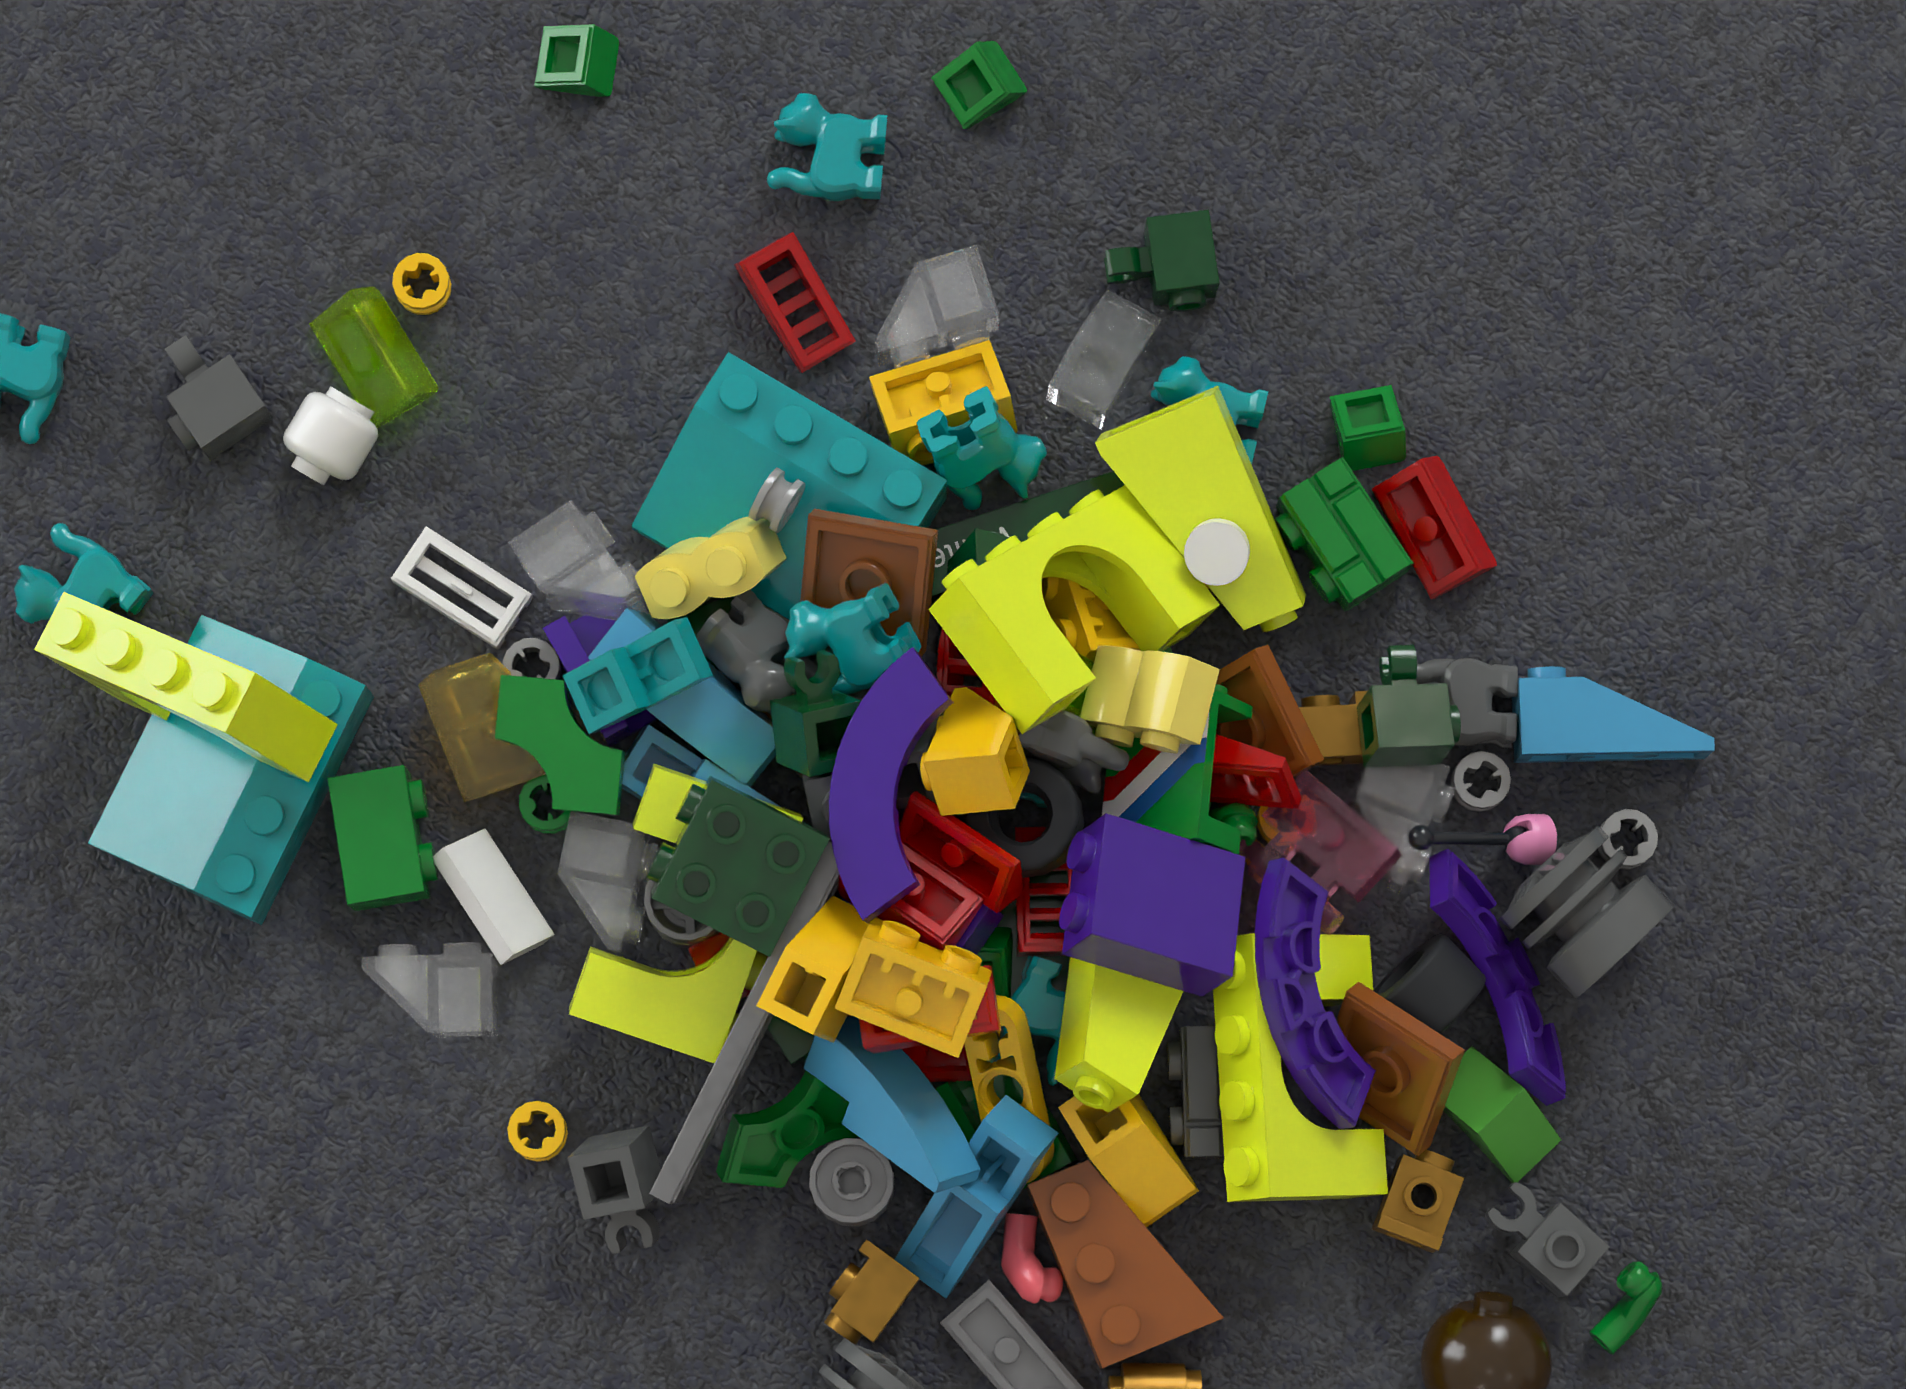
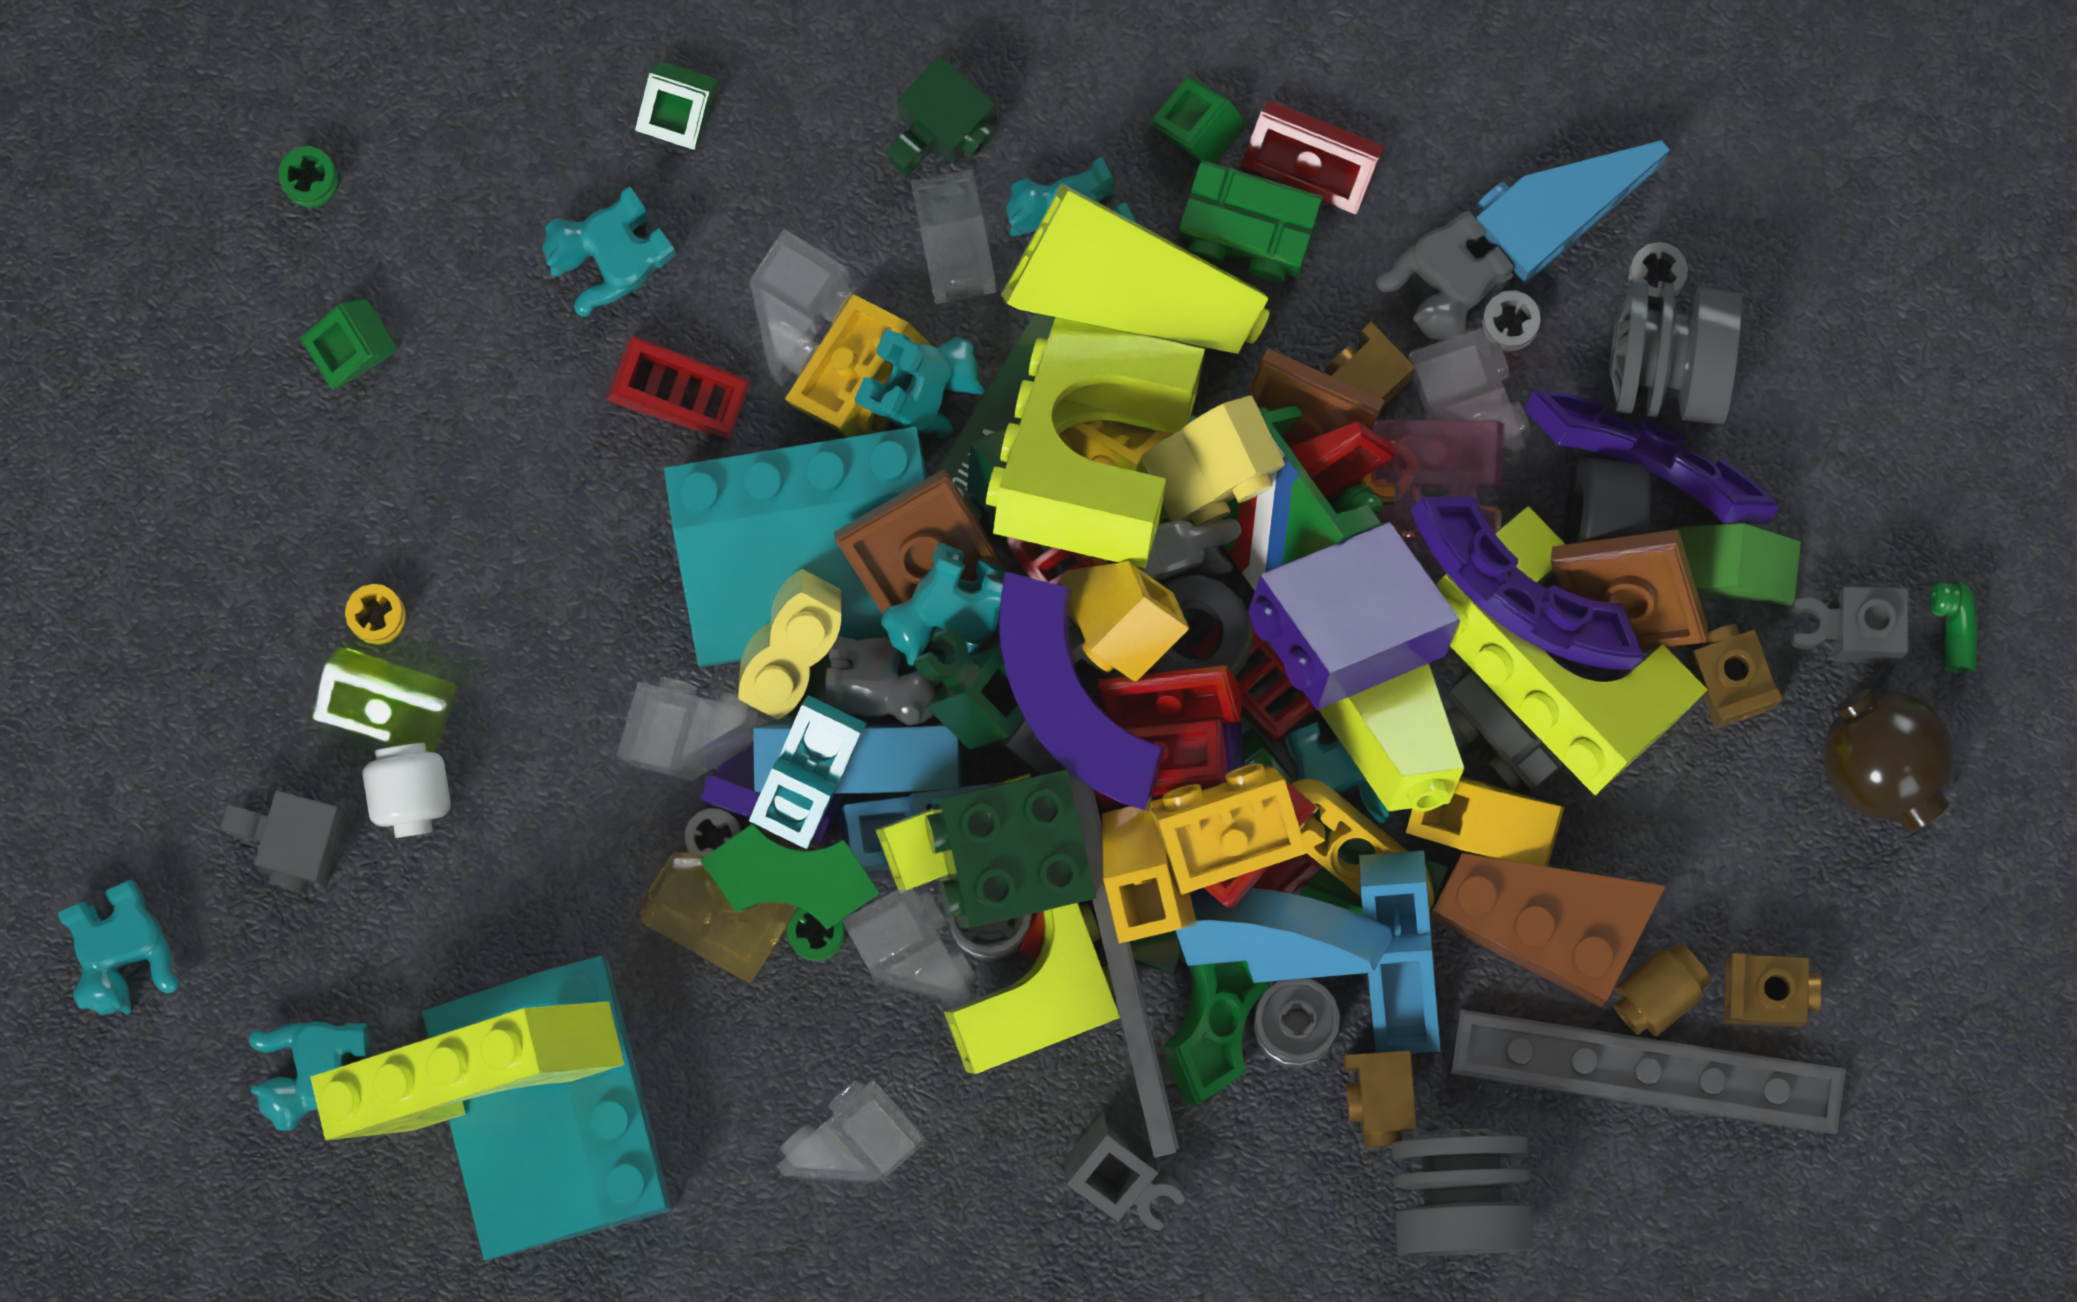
camera: 30 degrees left, 0 degrees up
(381, 837) = (710, 1064): green brick -> none
(492, 896) = (834, 1037): white tile -> none
(506, 617) = (660, 816): white tile -> none
(523, 1117) = (1040, 1189): yellow bush -> none
(777, 500) = (800, 549): light grey bush -> none
(1022, 1266) = (1477, 977): coral arm -> none
(1217, 551) = (1170, 309): white tile -> none
(1403, 719) = (1418, 319): dark green brick -> none
(1526, 837) = (1583, 333): hinge -> none

